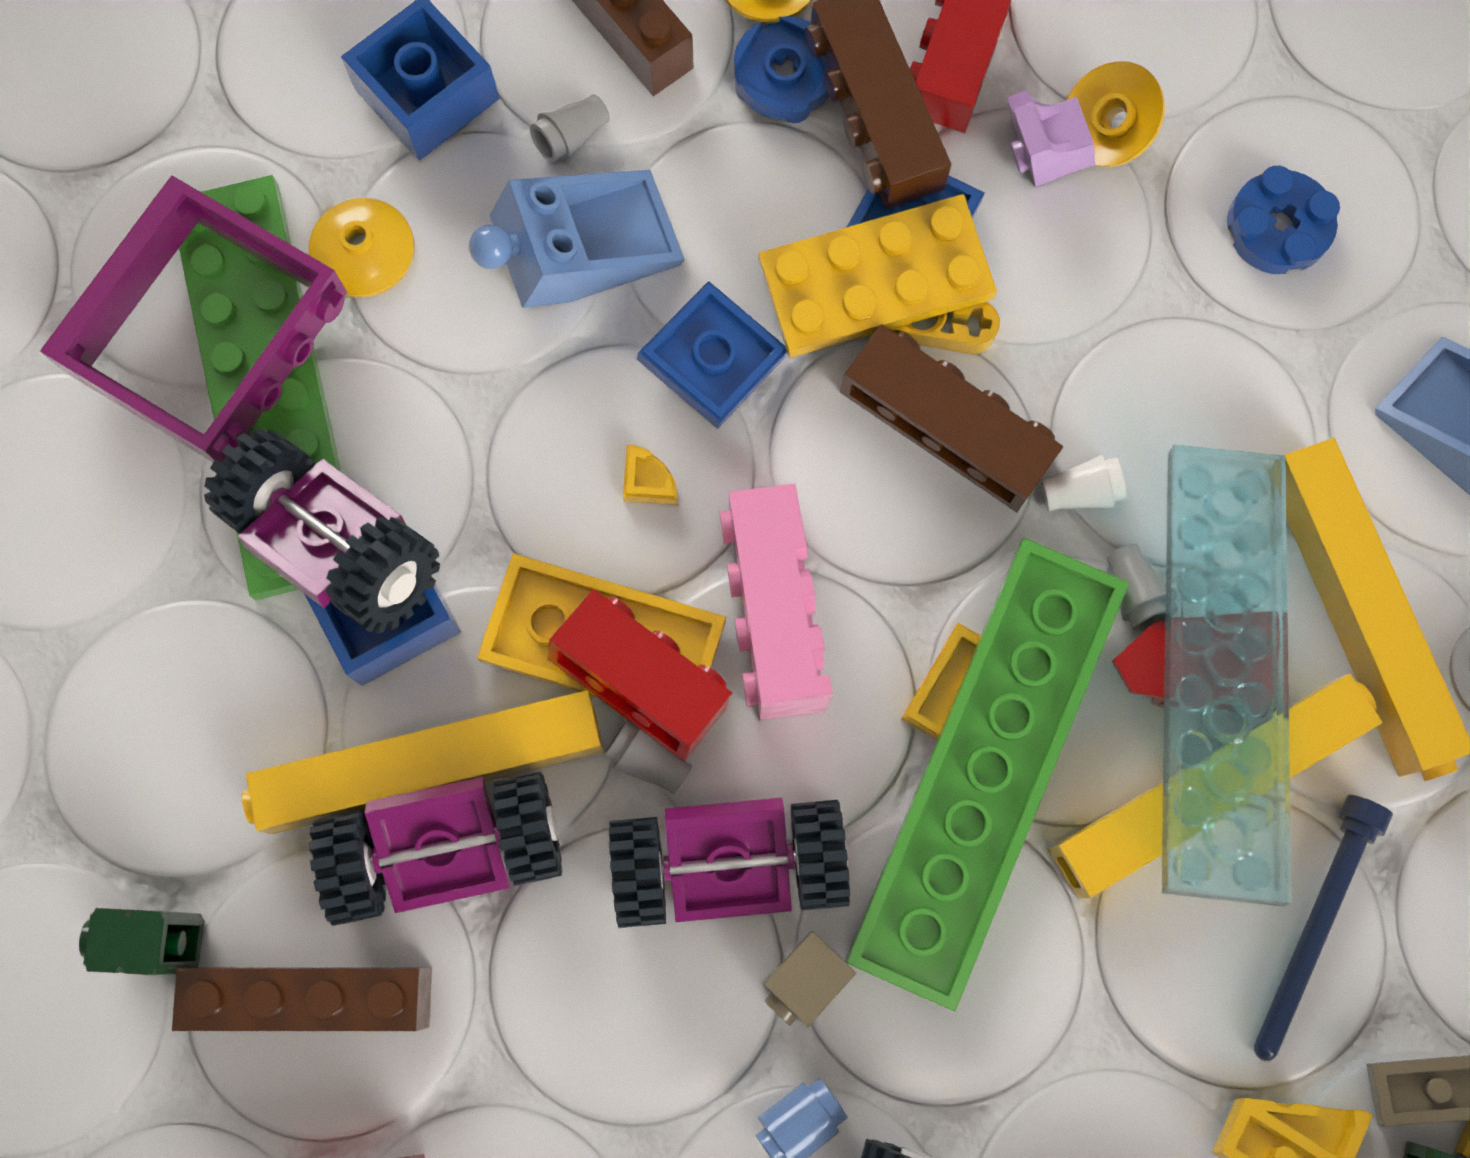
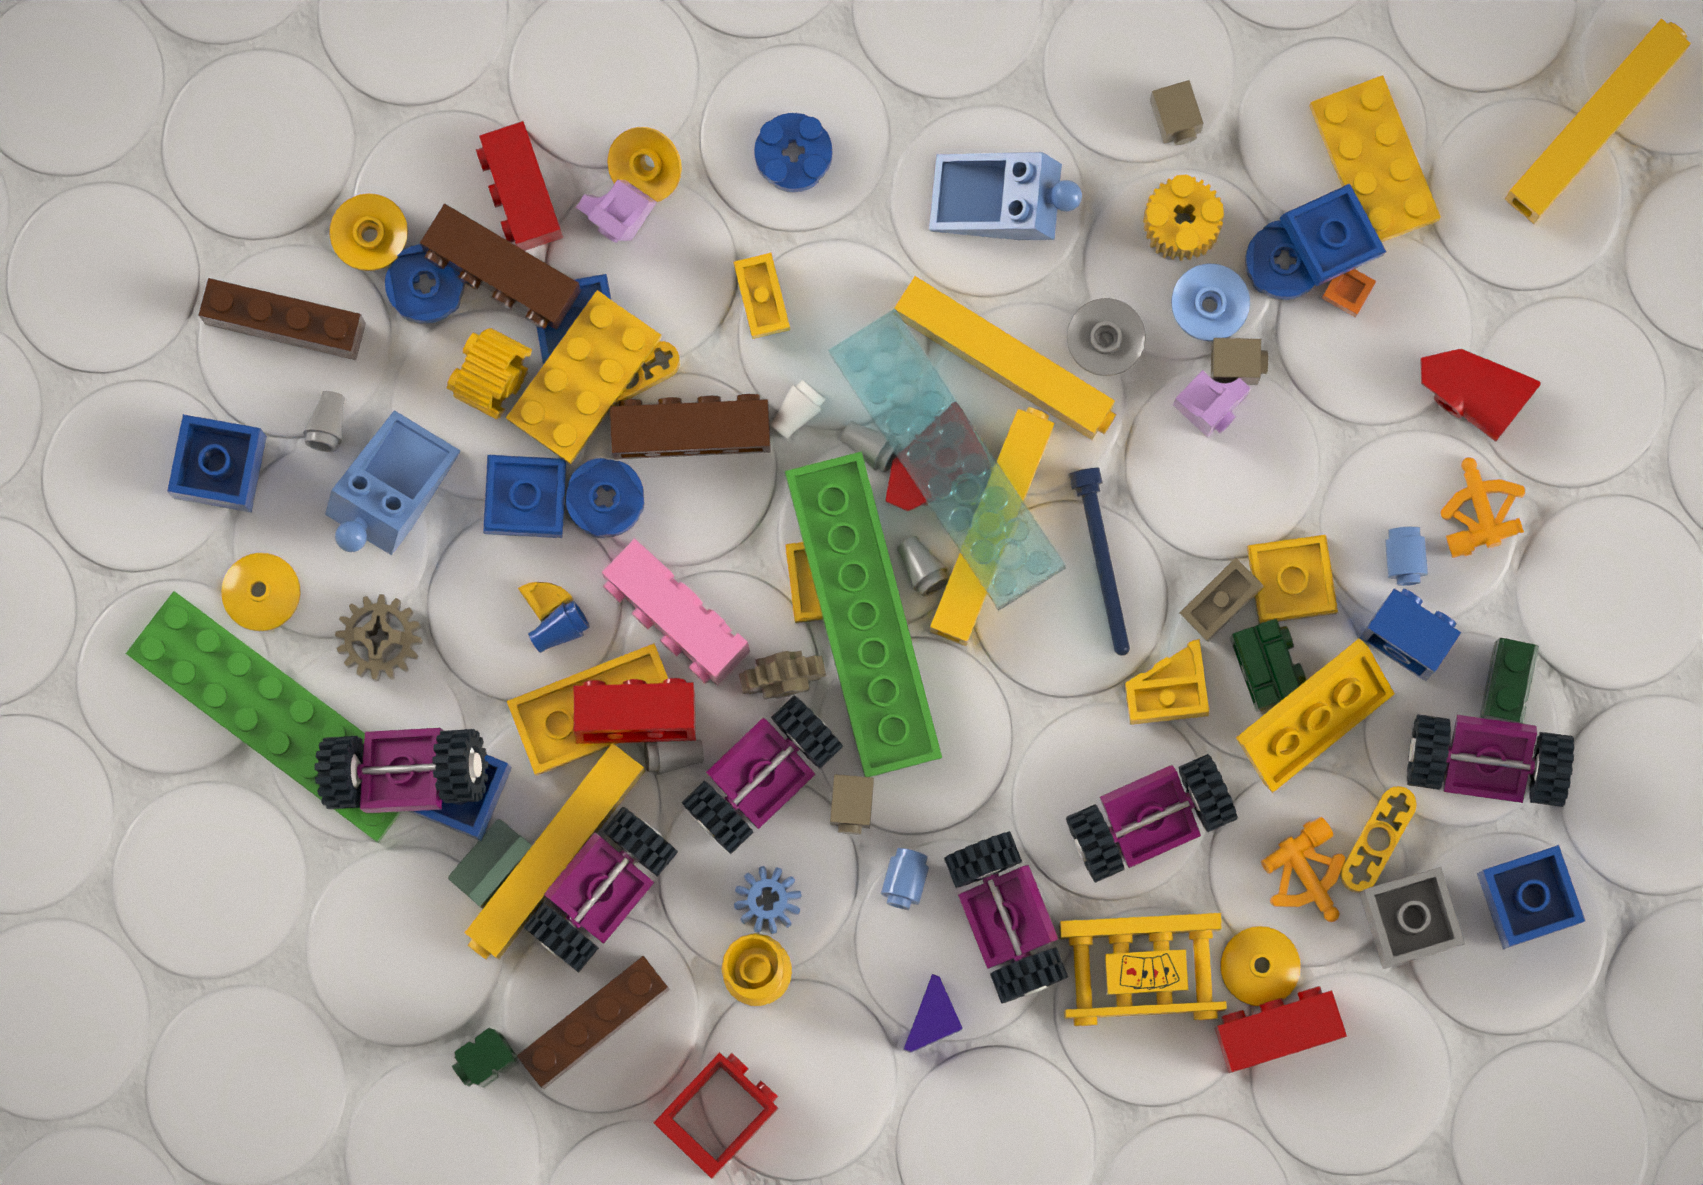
camera: 35 degrees left, 5 degrees up
(135, 268) = (155, 719): magenta window -> none
(348, 717) = (489, 863): none -> sand green panel
(447, 360) = (361, 636): none -> dark tan gear
(543, 1088) = (756, 969): none -> yellow piece
(627, 1035) = (756, 893): none -> medium blue gear
(640, 520) = (561, 626): none -> blue cone
(779, 192) = (489, 372): none -> yellow brick
(822, 402) = (609, 475): none -> blue plate
(843, 765) = (782, 674): none -> dark tan gear
(1097, 769) = (923, 568): none -> light grey cone
(1136, 339) = (761, 295): none -> yellow plate

